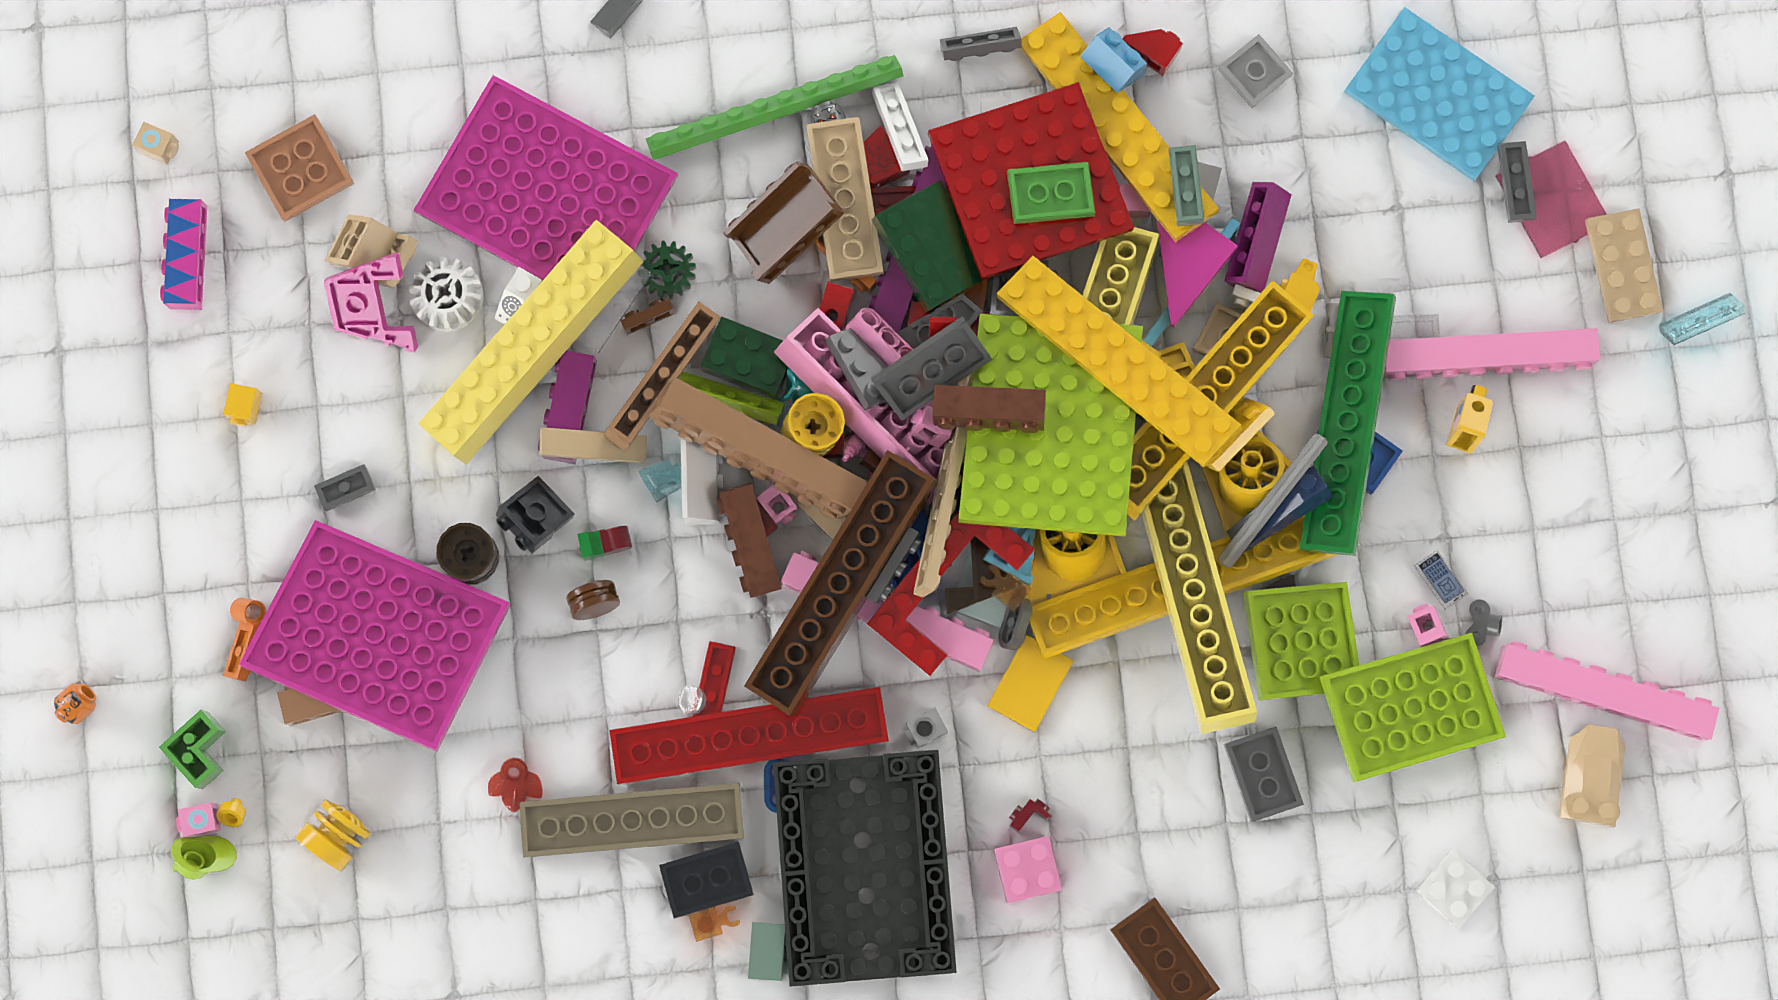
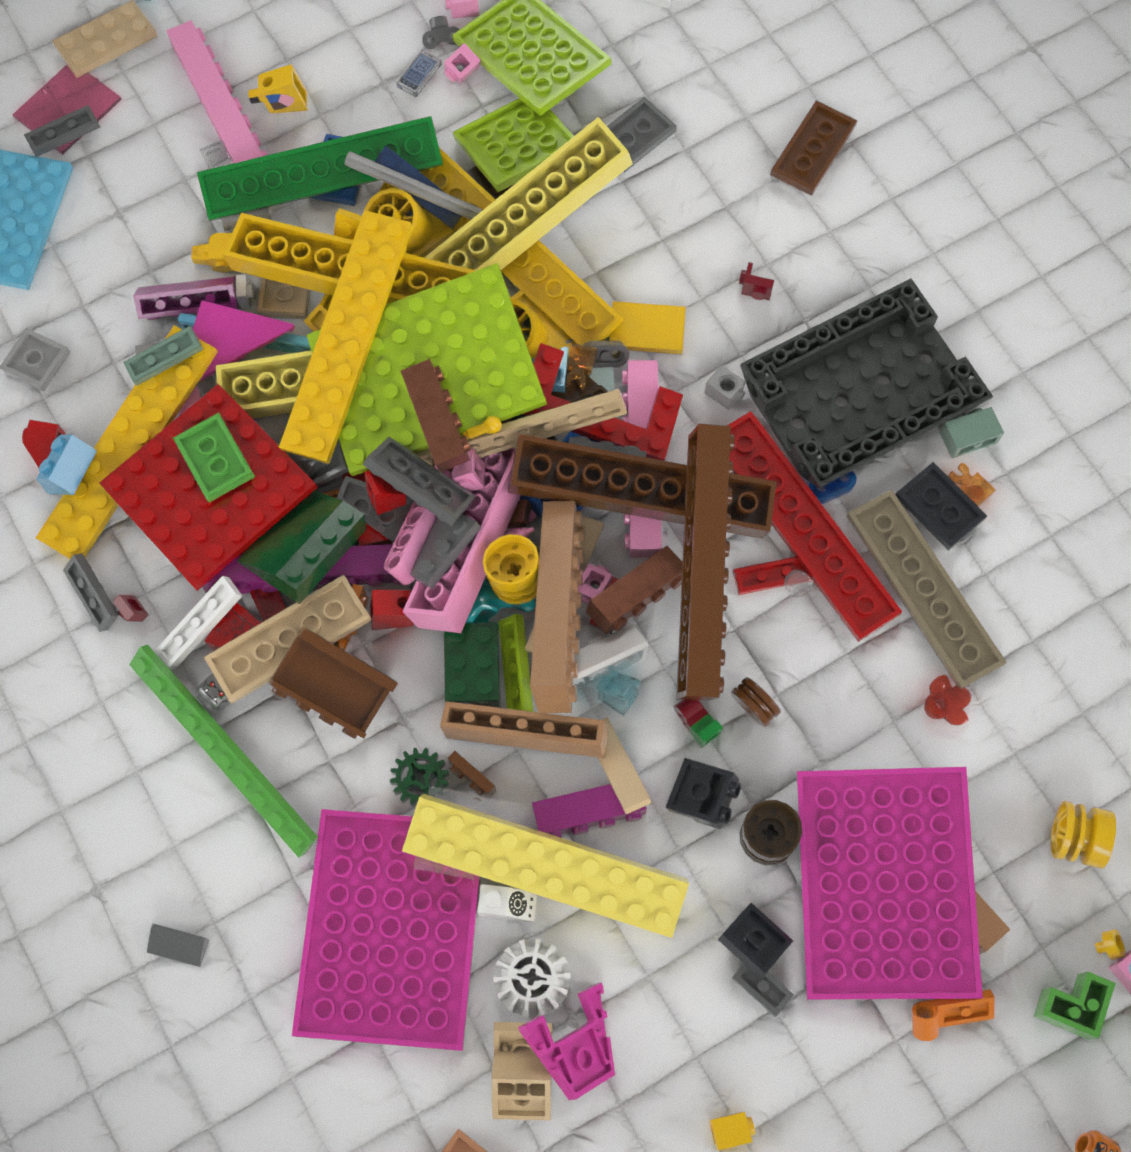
camera: 110 degrees left, 10 degrees down
(383, 498) = (755, 940): none -> black plate
(727, 596) = (704, 563): none -> reddish brown brick
(947, 73) = (130, 608): none -> dark red plate
(959, 458) = (490, 425): none -> yellow piece
(1027, 869) = (799, 266): bright pink brick -> none

